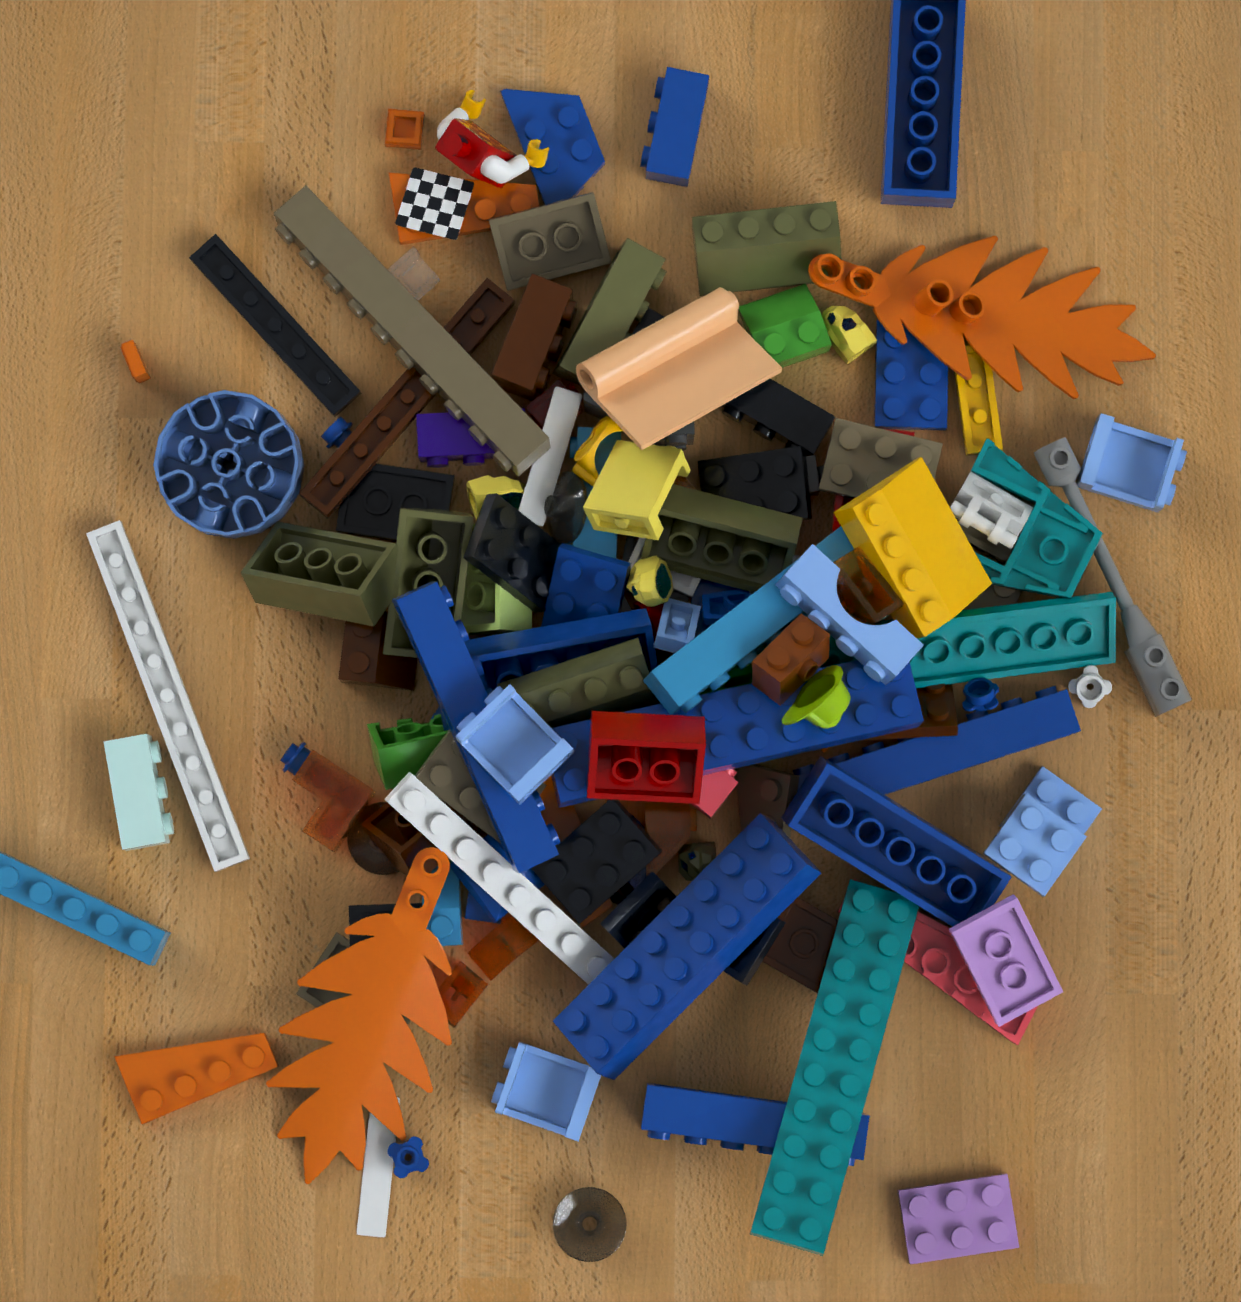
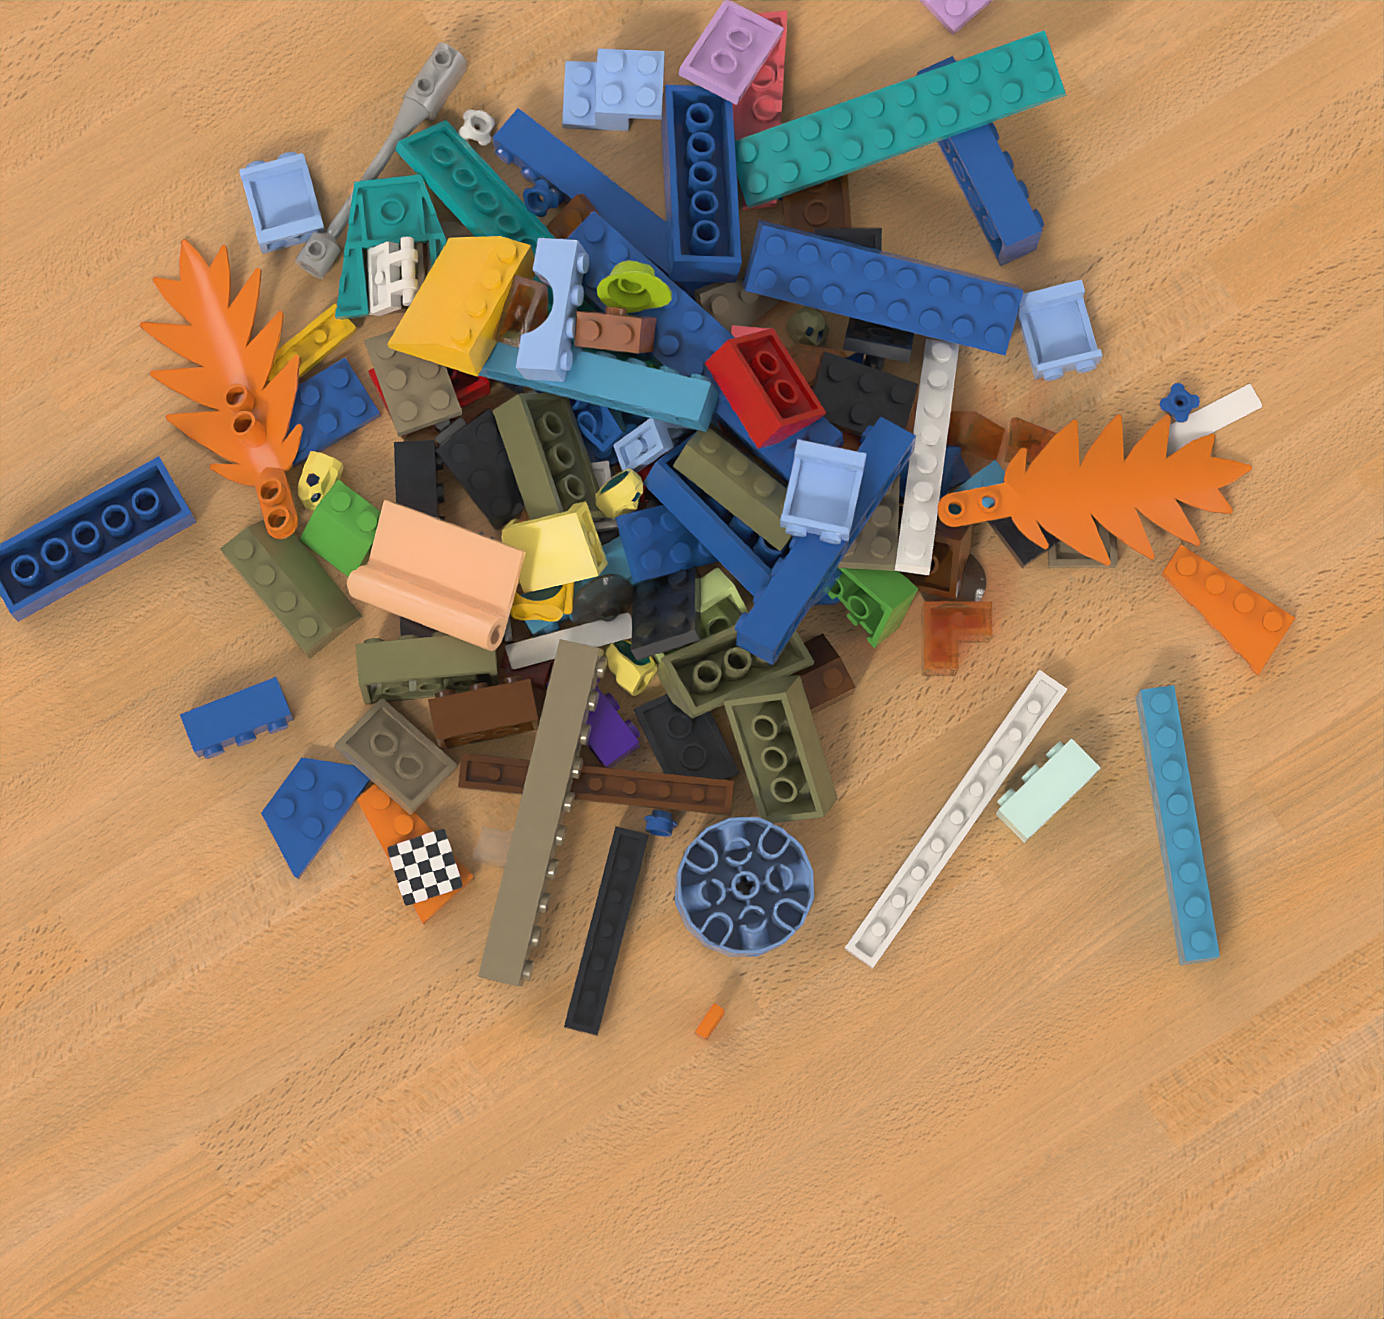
camera: 125 degrees left, 5 degrees down
(294, 757) = (937, 685): blue plate -> none
(404, 129) = (377, 935): orange tile -> none
(478, 151) = (361, 856): torso -> none
(596, 1243) = (1138, 221): clear smoke dish -> none

